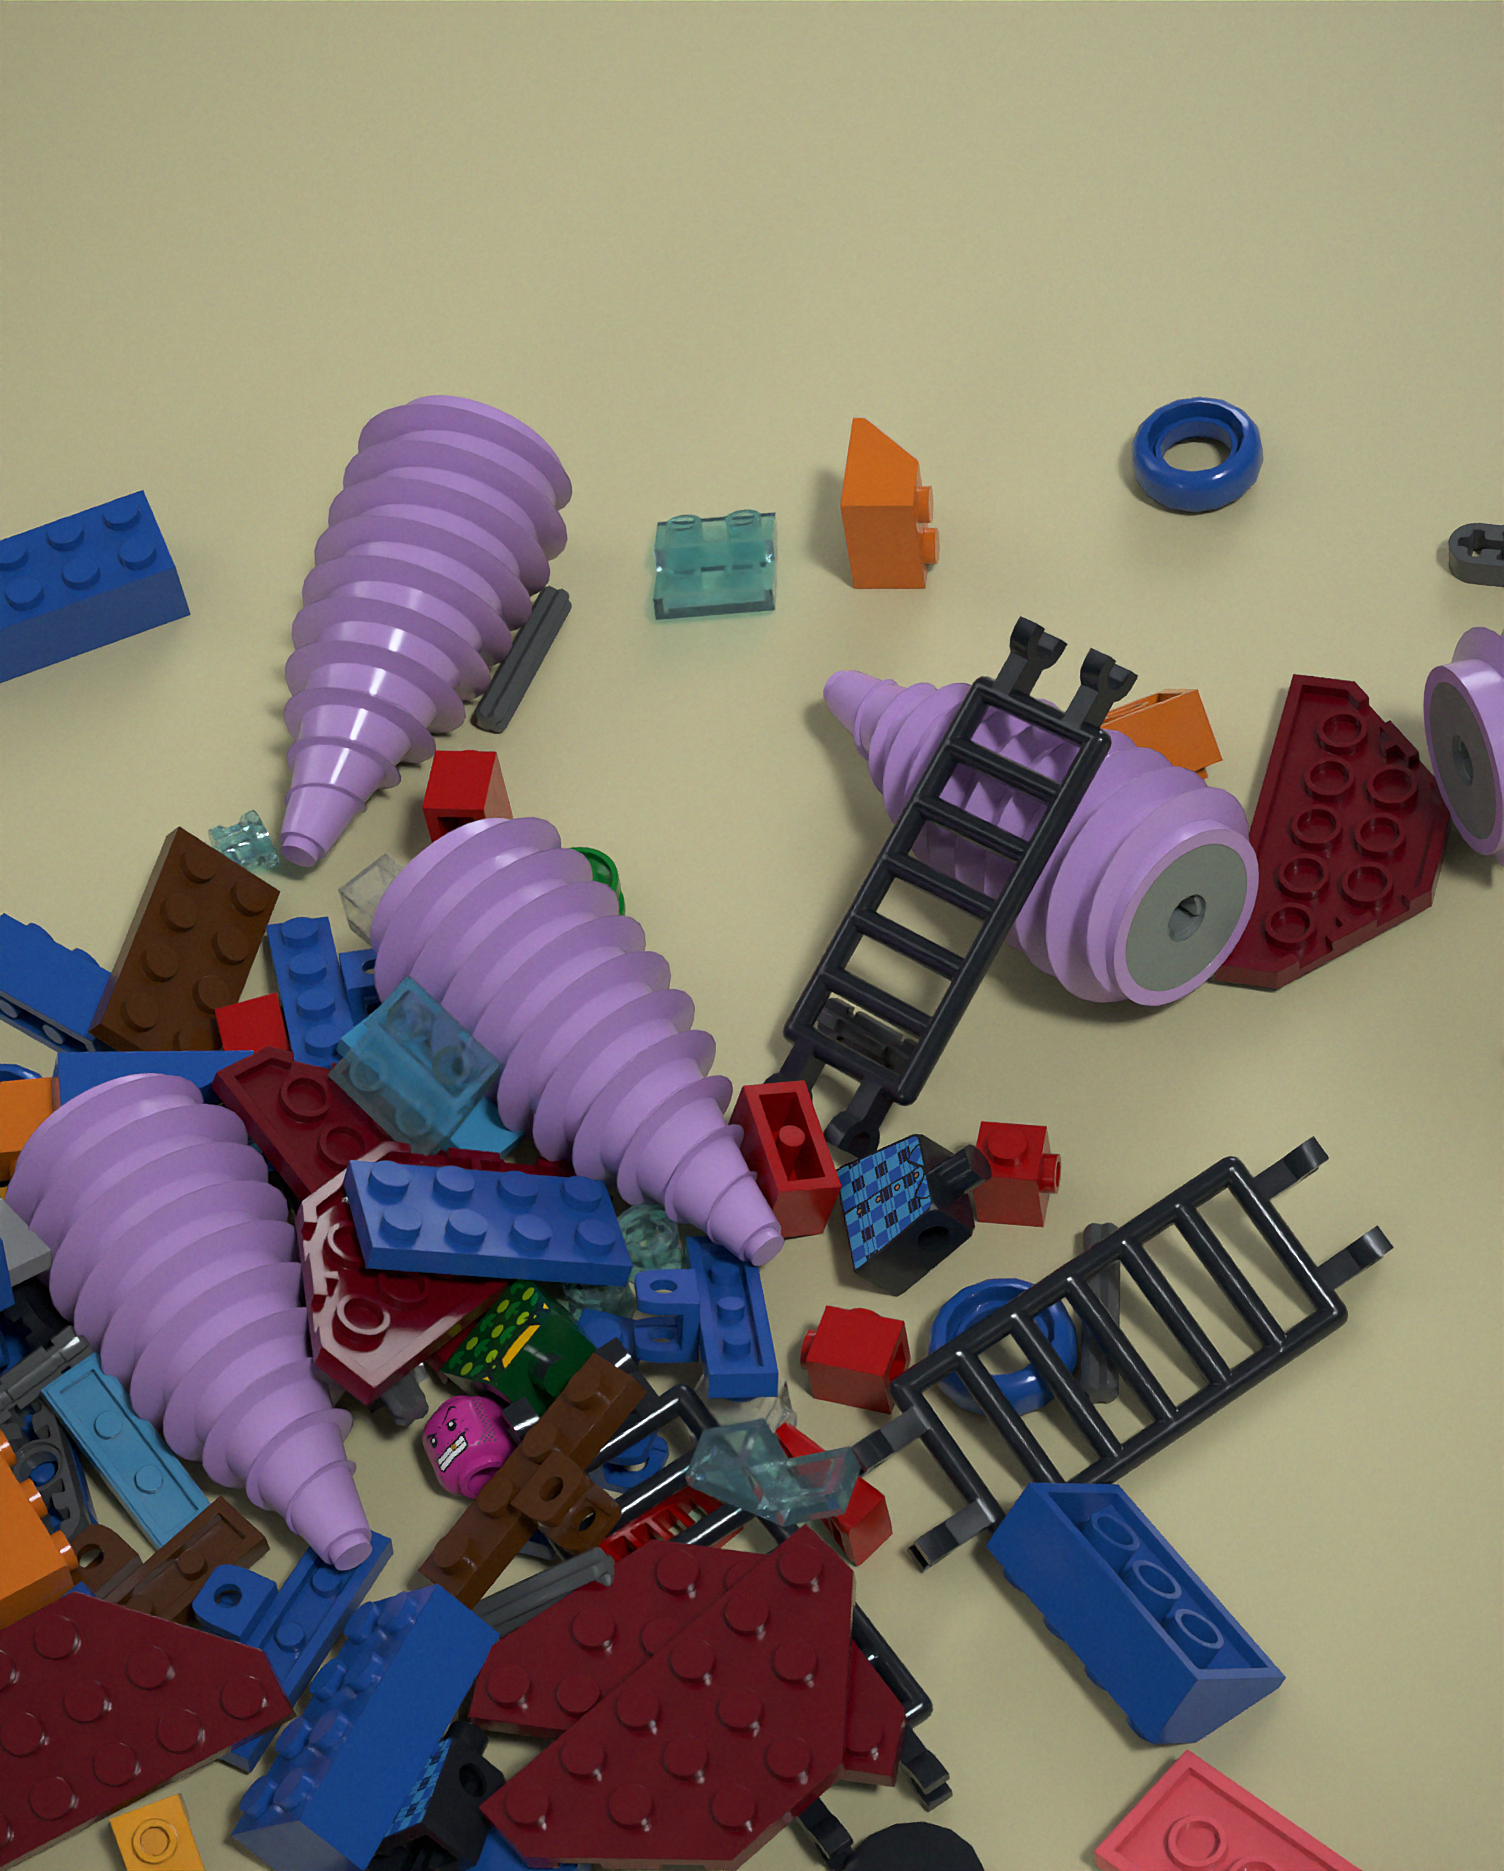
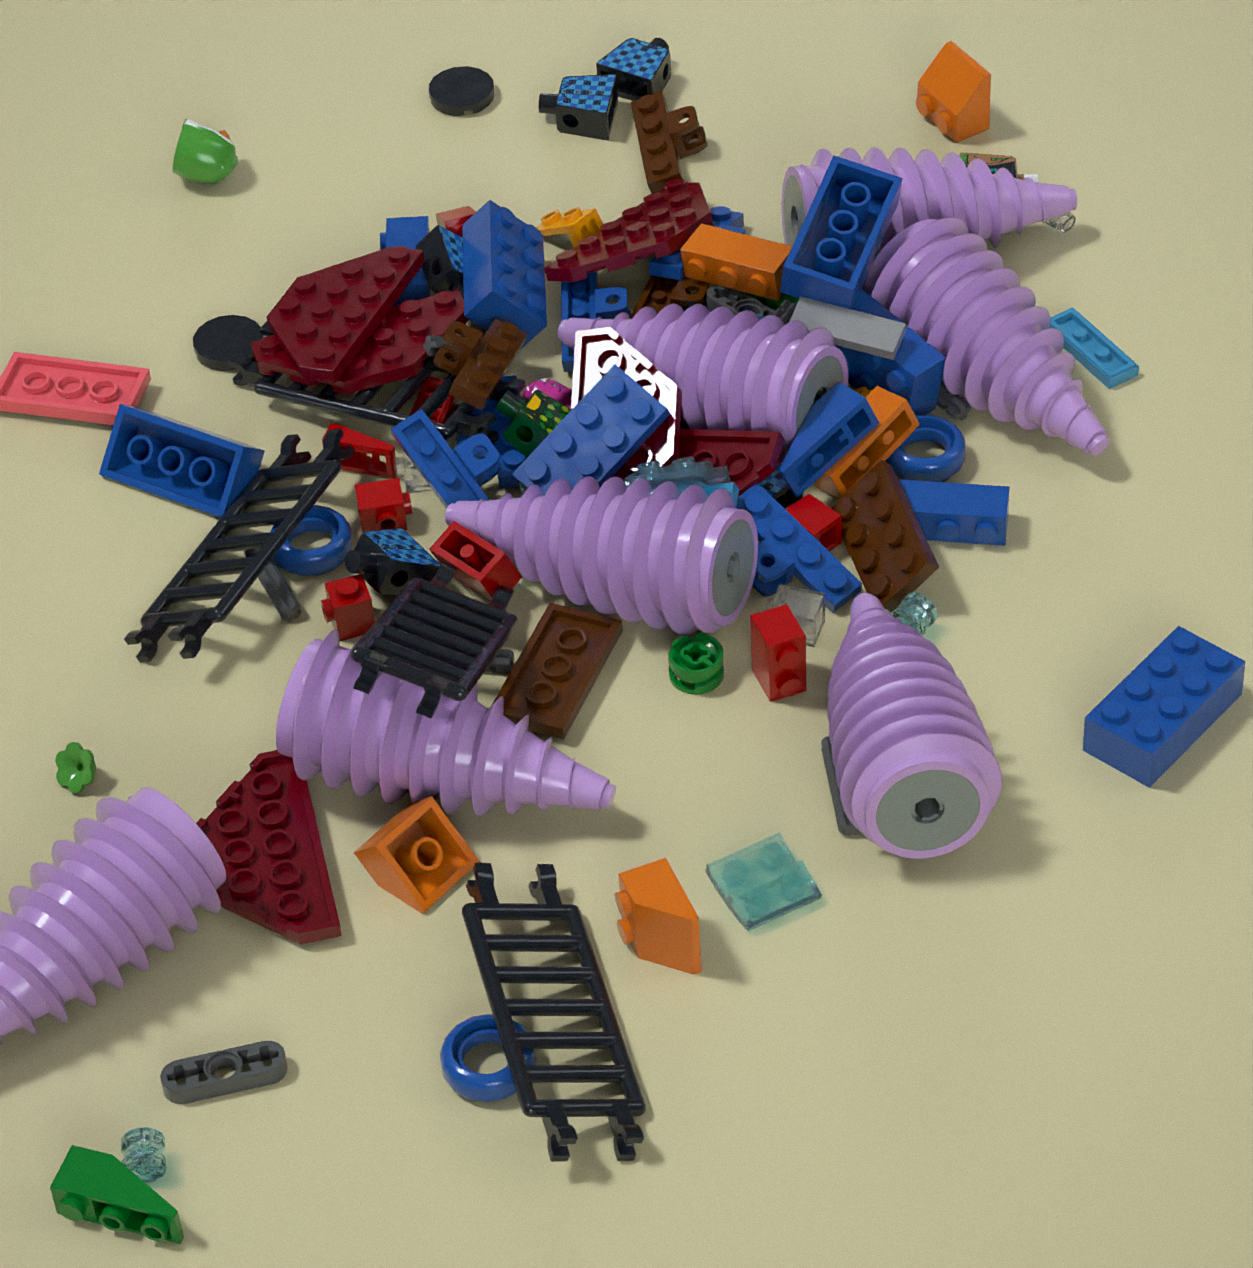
camera: 145 degrees right, 5 degrees down
(752, 1472) = (382, 406): clear light blue slope -> none
(761, 960) = (558, 668): none -> reddish brown plate
(1086, 597) = (553, 1111): none -> black bar

